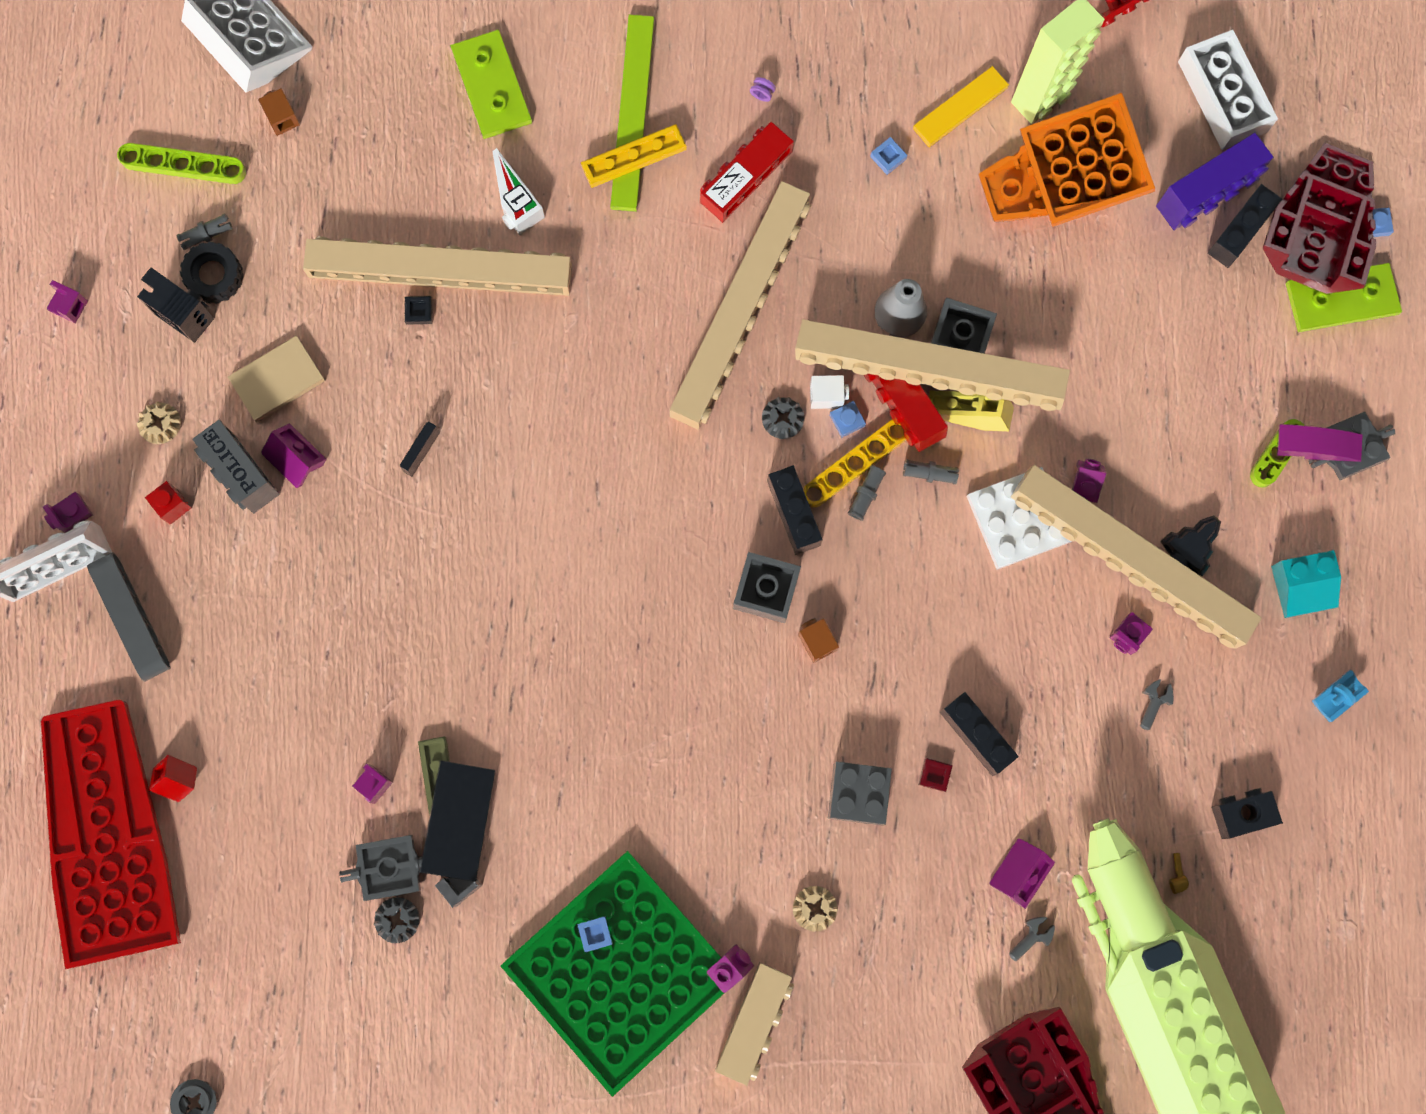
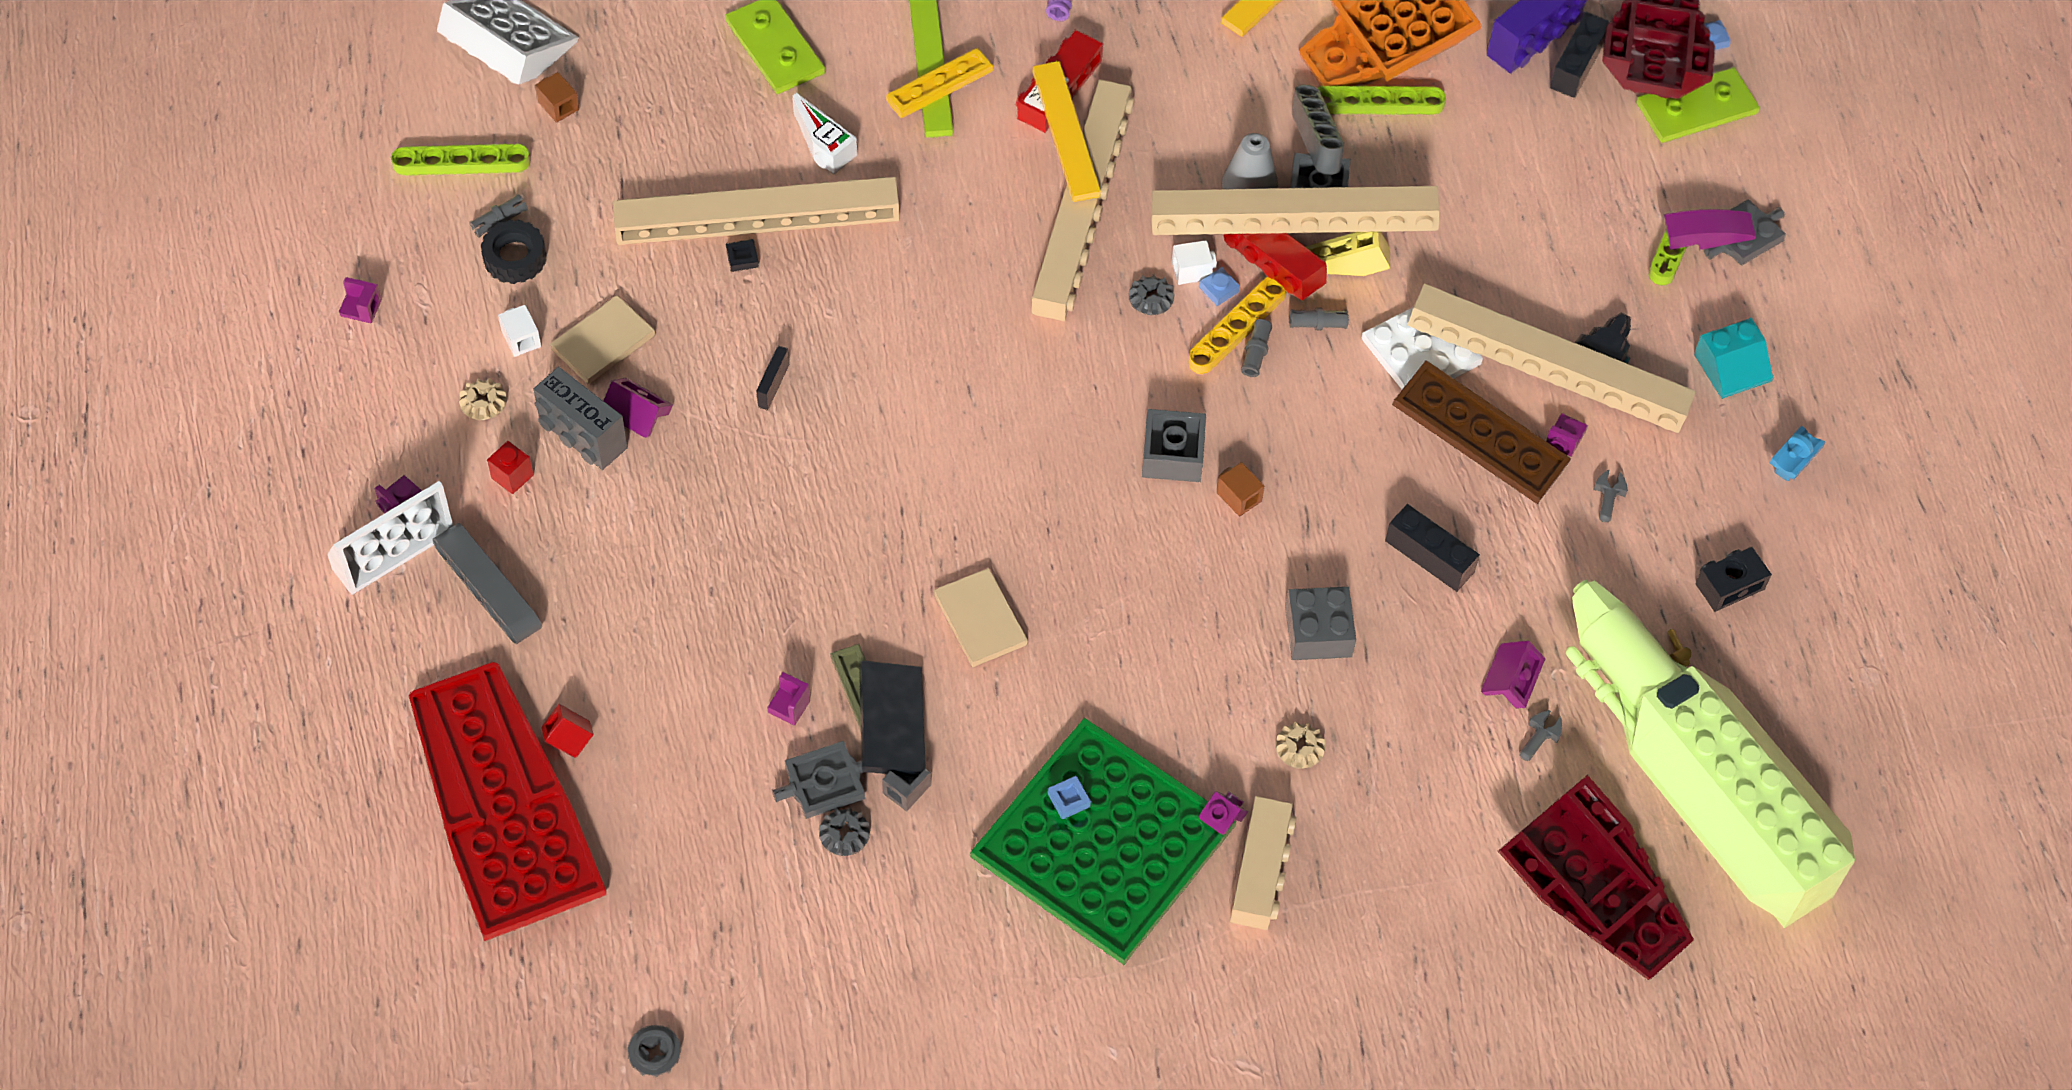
camera: 10 degrees left, 20 degrees down
(175, 306) = (483, 280): black piece -> none
(201, 358) = (519, 330): none -> white brick
(558, 727) = (980, 617): none -> tan tile
(737, 235) = (1066, 131): none -> yellow tile
(794, 510) = (1185, 371): black brick -> none
(888, 156) = (1202, 47): medium blue plate -> none
(935, 775) = (1396, 598): dark red tile -> none
(973, 275) = (1317, 129): none -> dark grey beam
(1052, 622) = (1481, 431): none -> reddish brown plate
(1053, 236) = (1389, 93): none -> lime beam
(1089, 479) = (1485, 295): magenta bracket -> none

